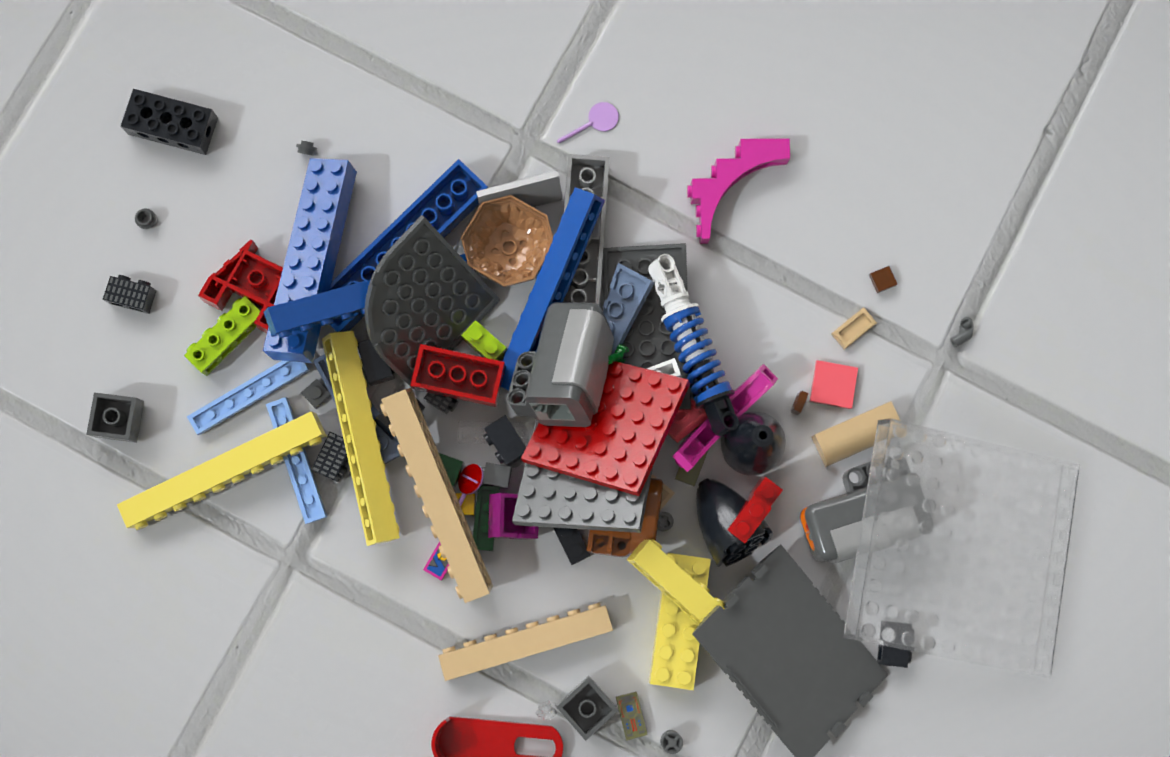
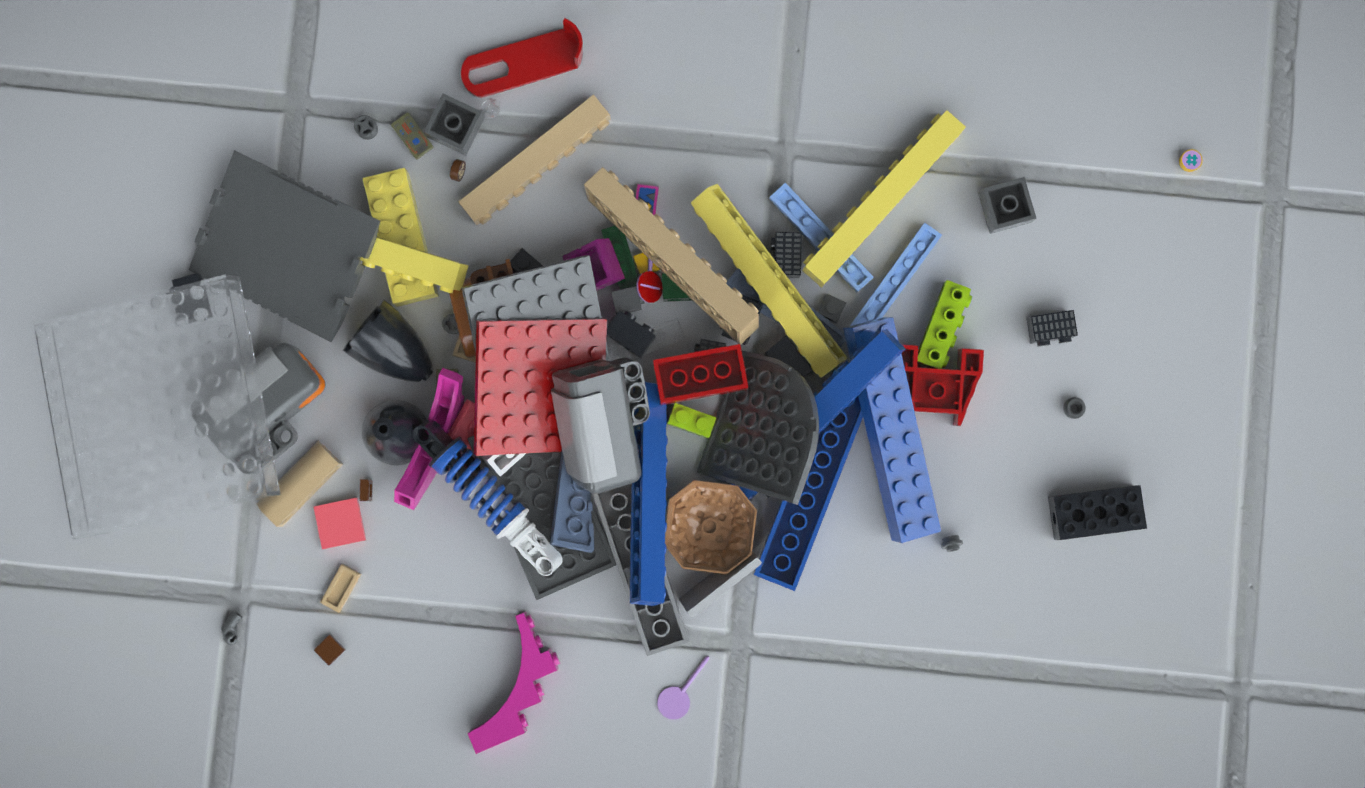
camera: 160 degrees right, 5 degrees up
(601, 663) = (457, 170): none -> reddish brown tile
(618, 355) = (556, 459): green bar -> none
(755, 509) = (365, 381): red arch -> none

